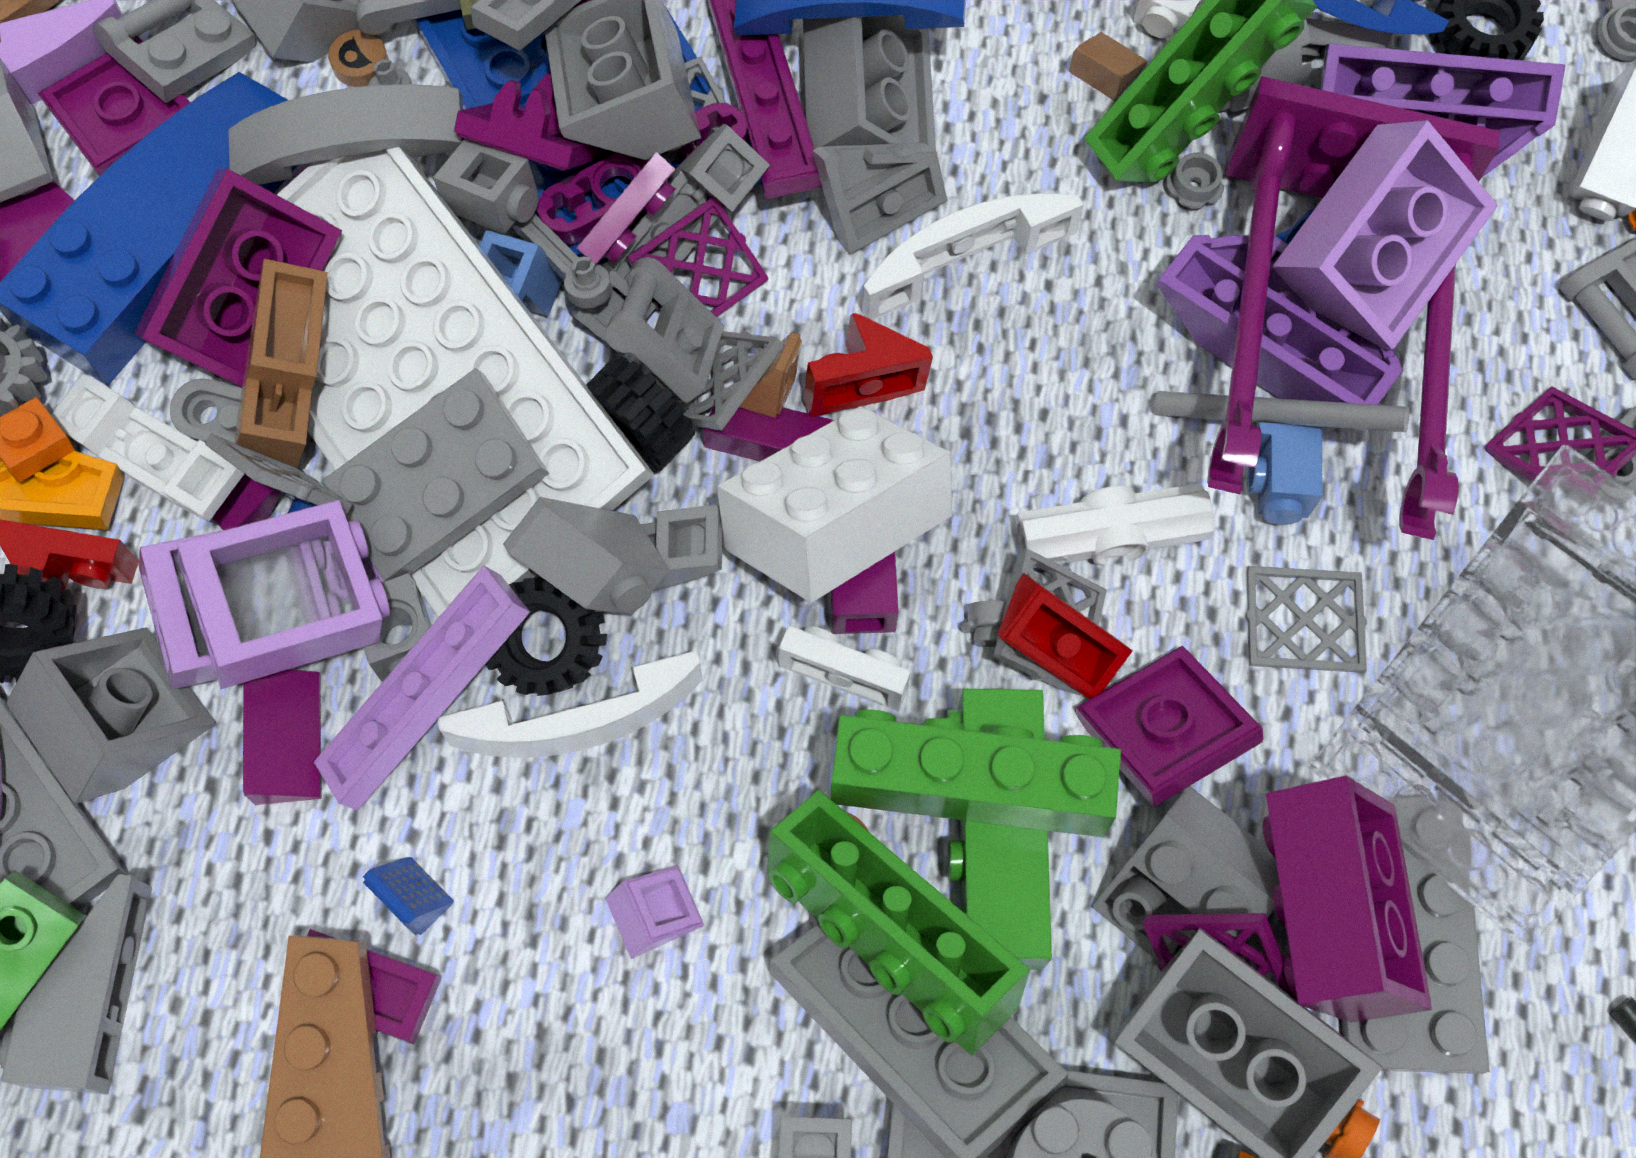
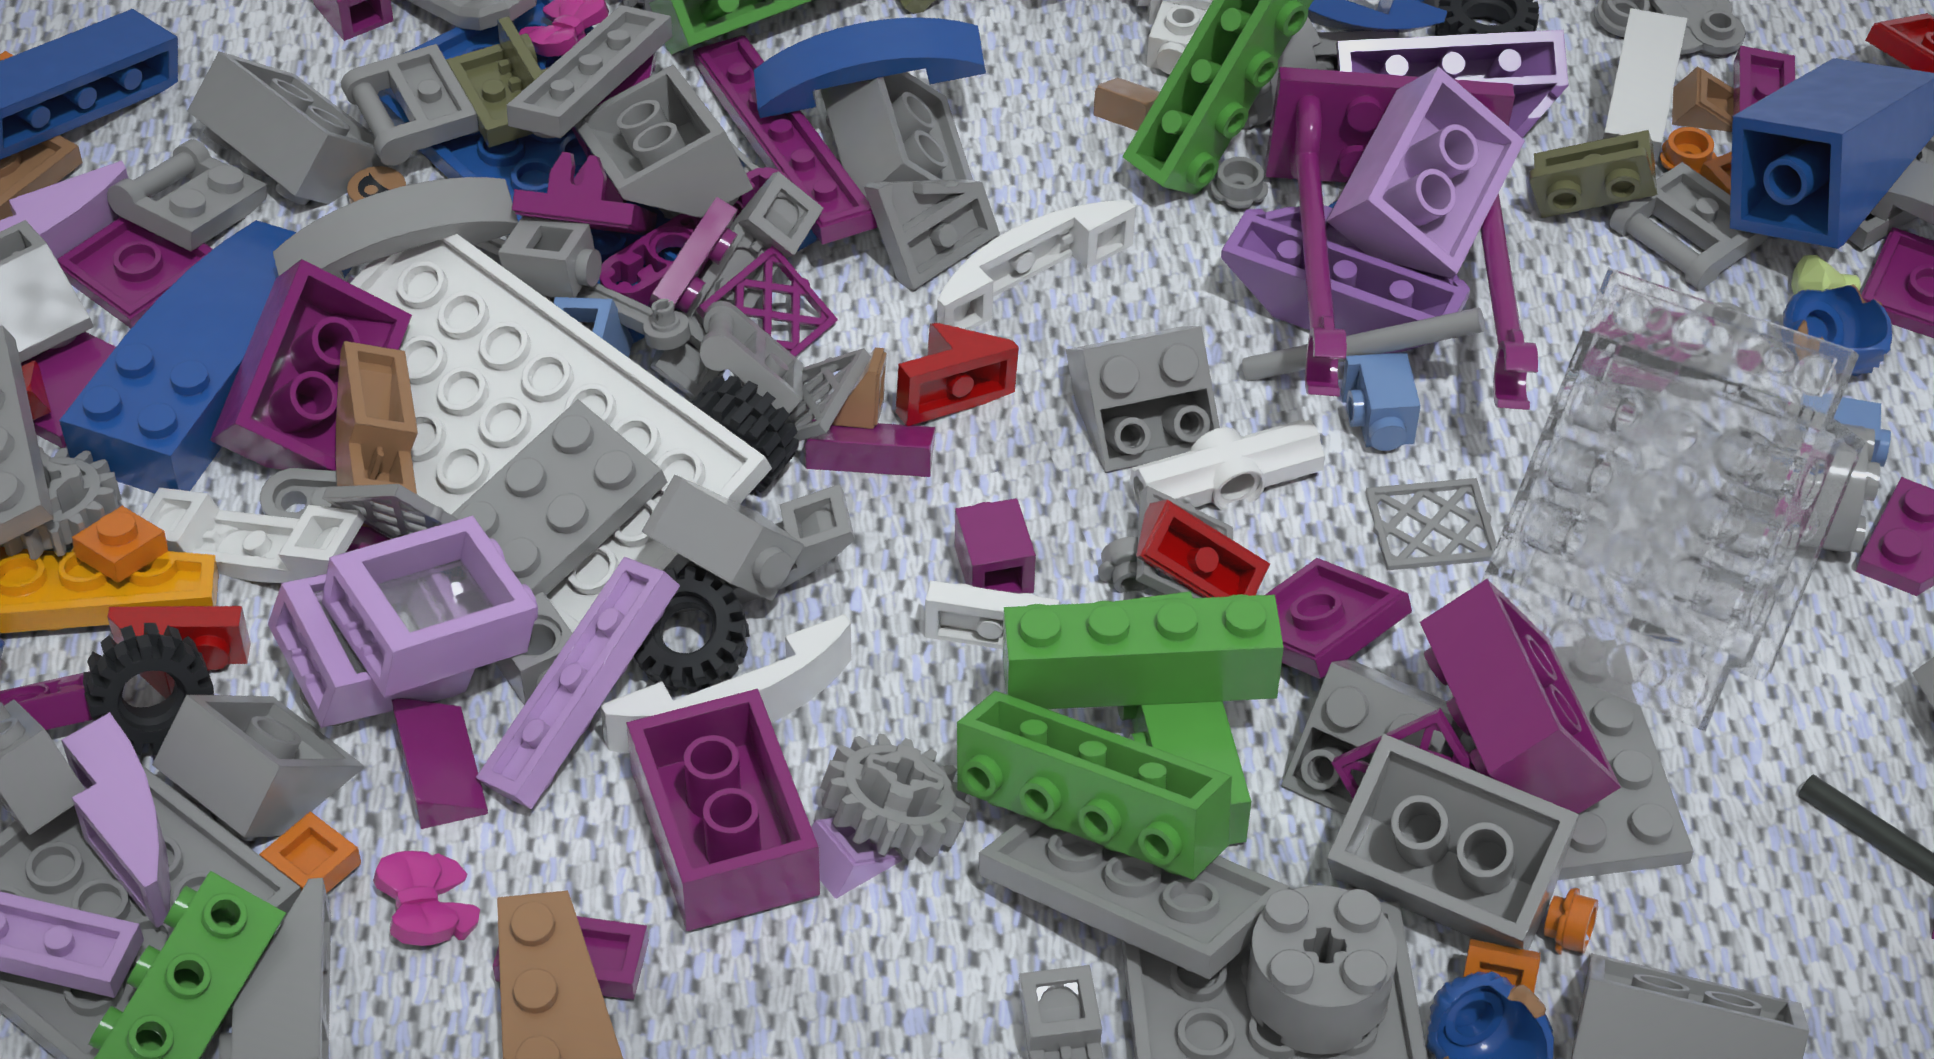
camera: 10 degrees left, 20 degrees down
(138, 830) = (313, 851): none -> orange plate
(229, 871) = (415, 883): none -> dark pink piece
(408, 893) = (596, 875): blue slope -> none
(531, 857) = (723, 809): none -> magenta brick
(677, 865) = (894, 796): none -> light grey gear
(835, 502) = (953, 465): white brick -> none
(1050, 425) = (1144, 395): none -> light grey slope
(1559, 232) = (1594, 174): none -> olive bracket

